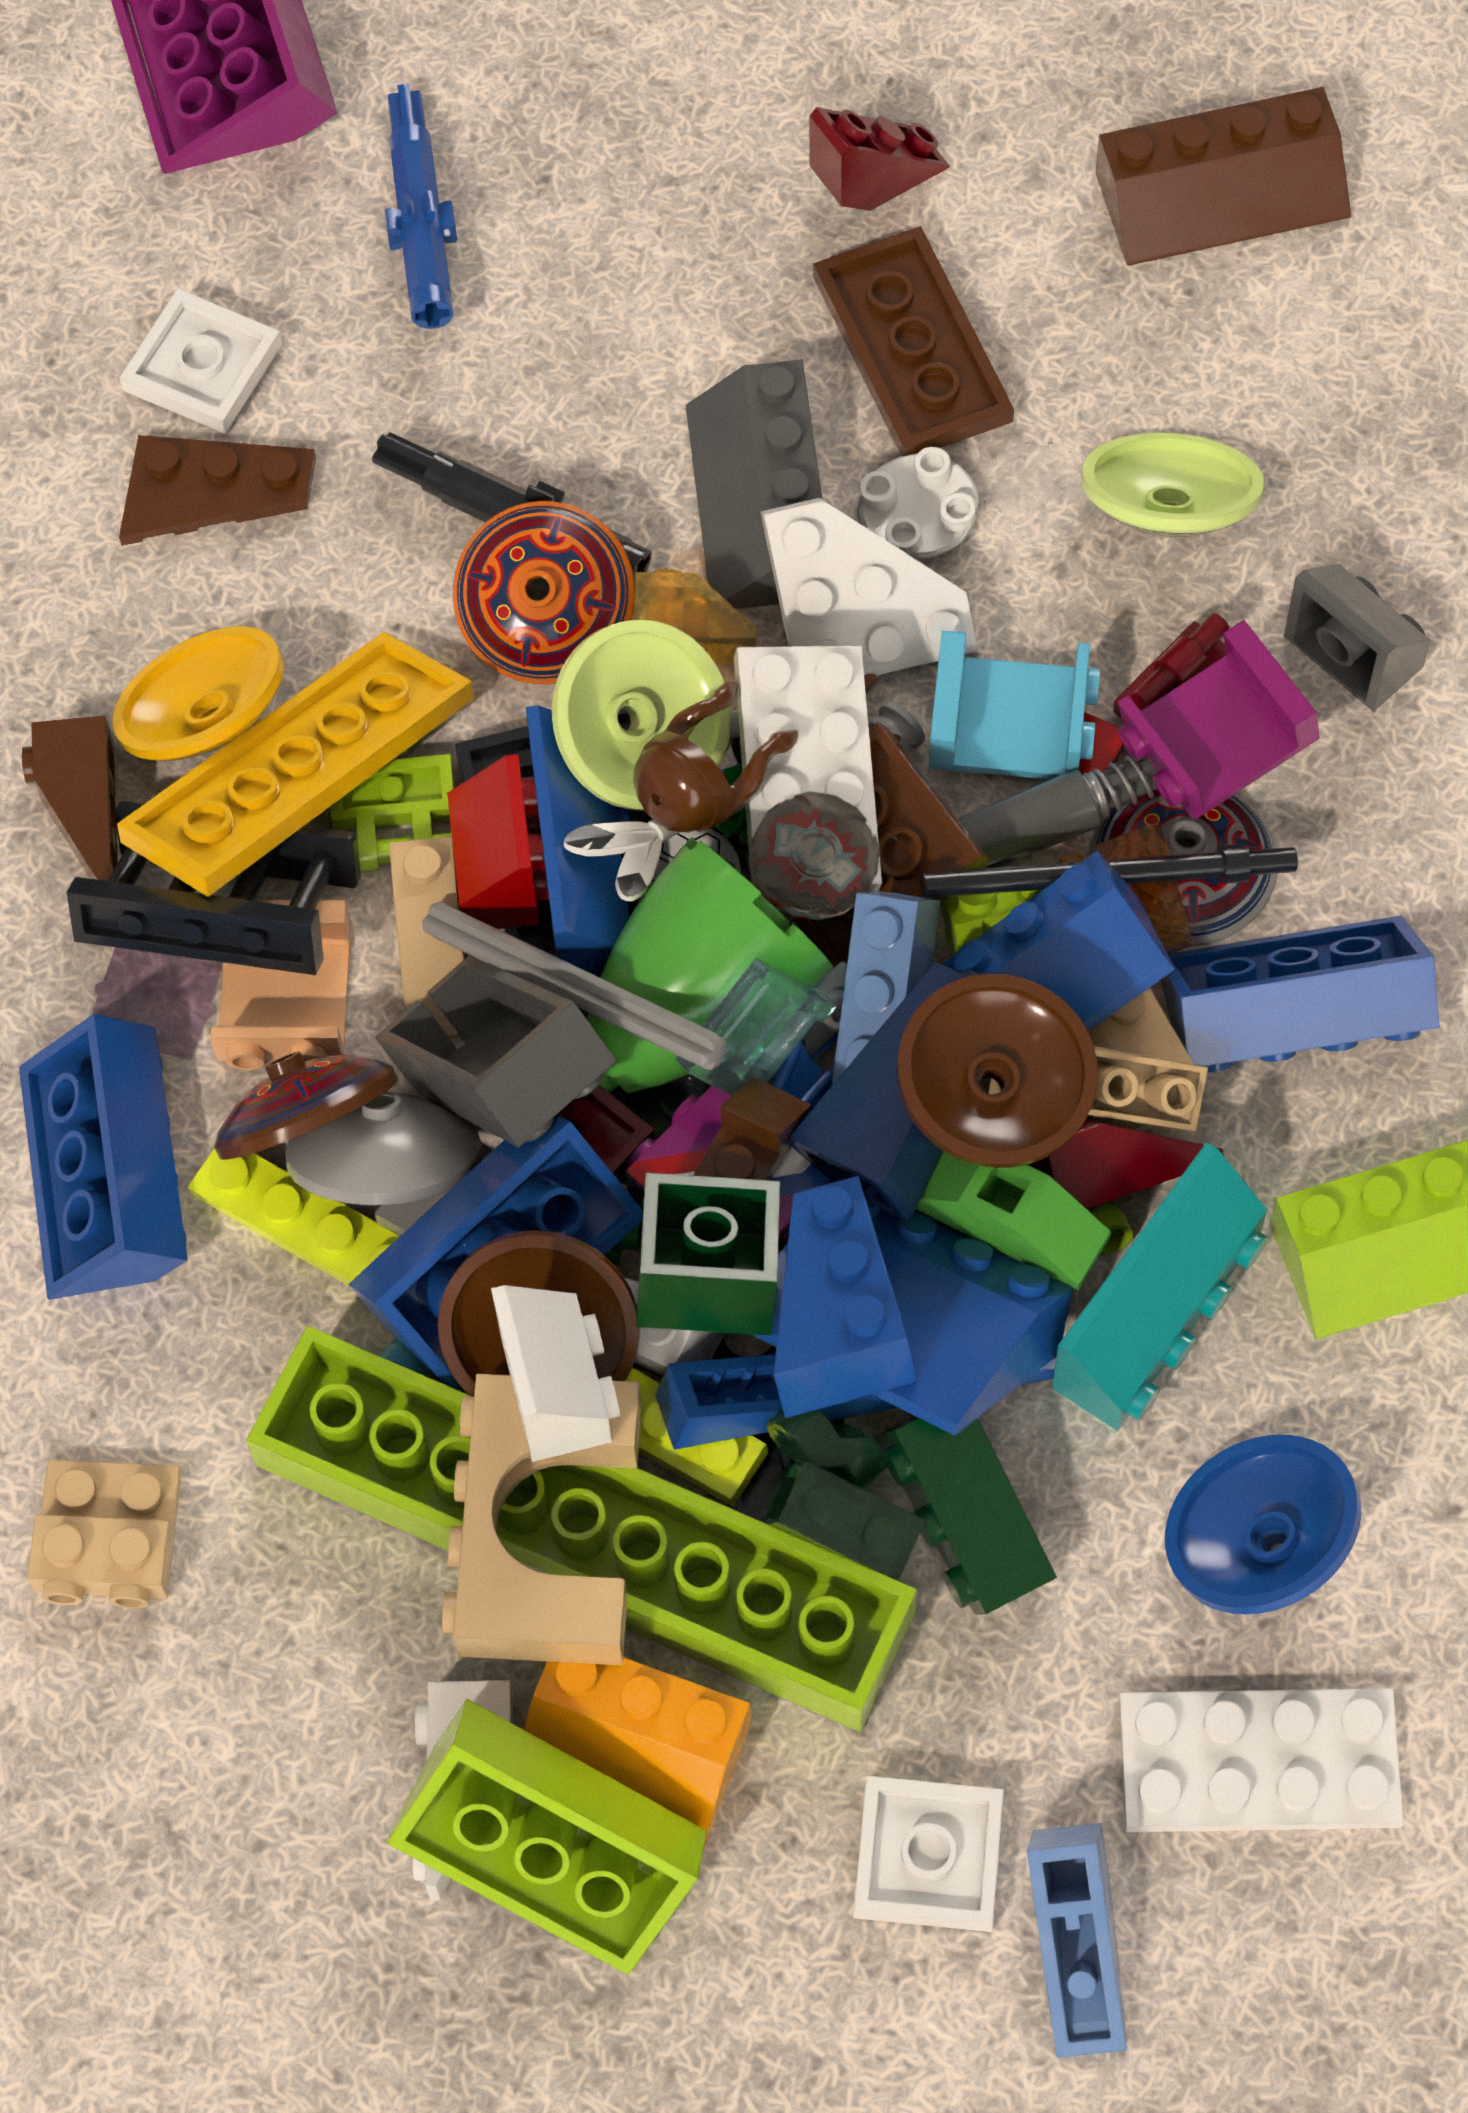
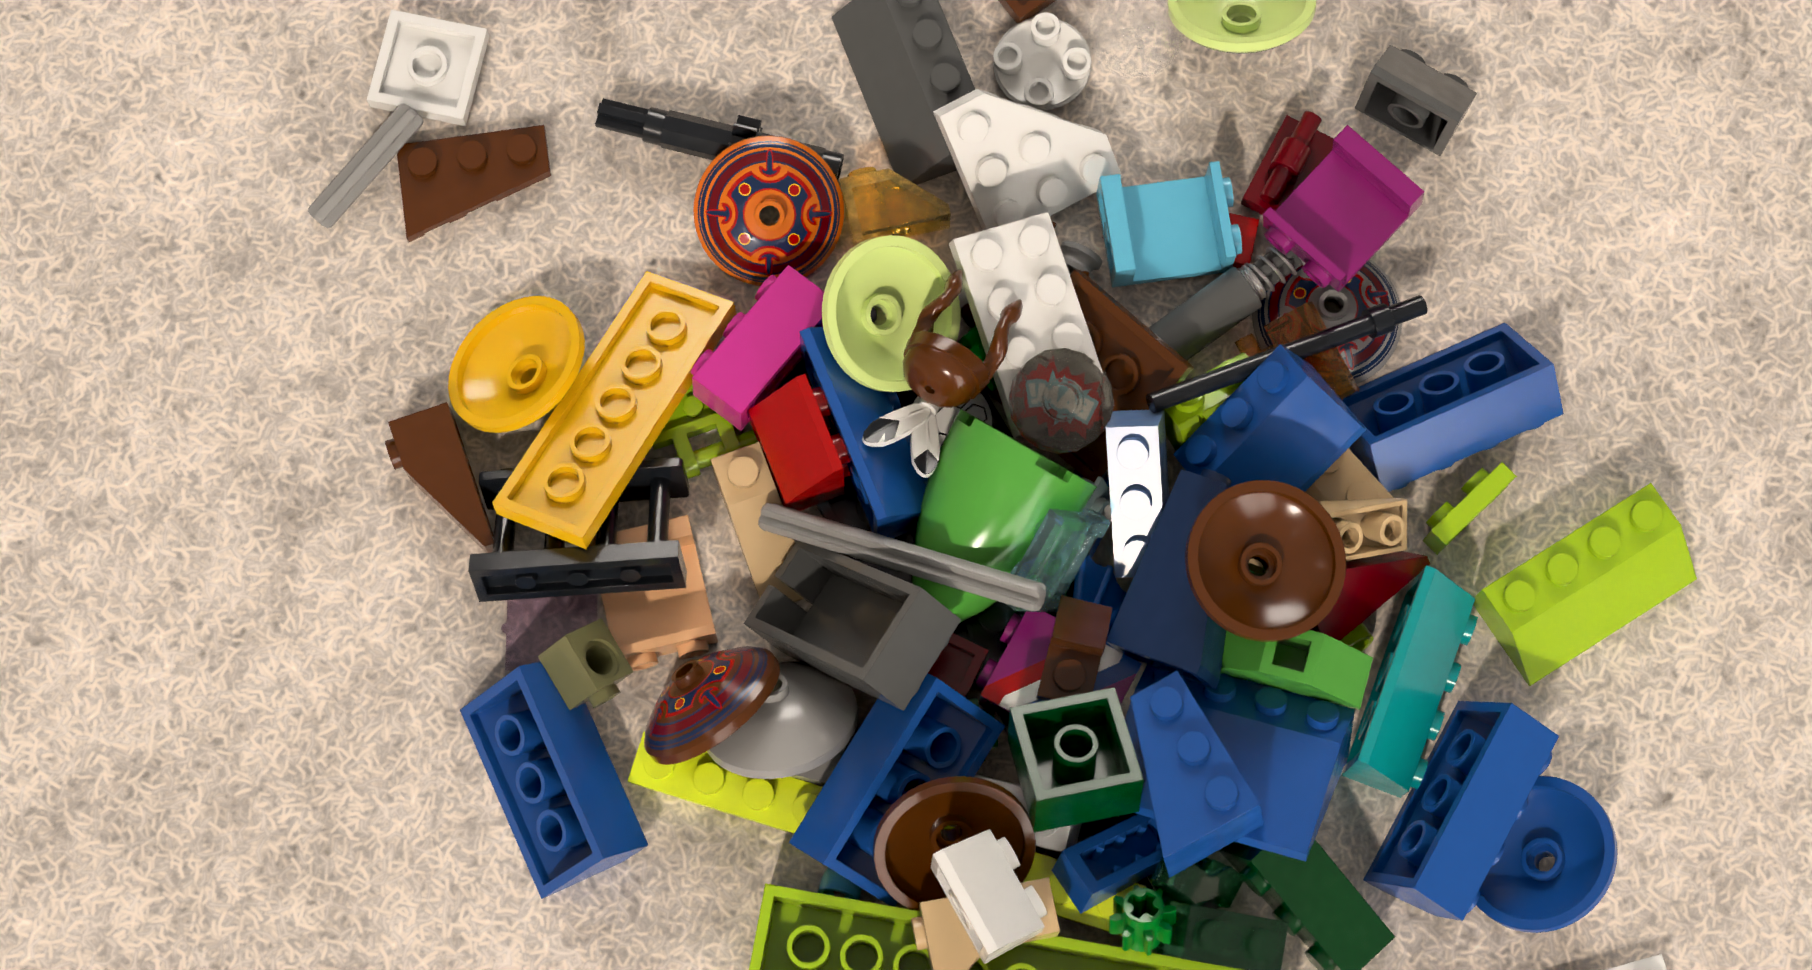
camera: 20 degrees left, 10 degrees up
(96, 448) = (365, 165): none -> light grey axle
(174, 1035) = (586, 665): none -> olive brick
(473, 731) = (758, 347): none -> dark pink brick
(744, 1469) = (1142, 919): none -> green gear
(1187, 1450) = (1463, 808): none -> blue slope
(1308, 1101) = (1480, 491): none -> lime plate

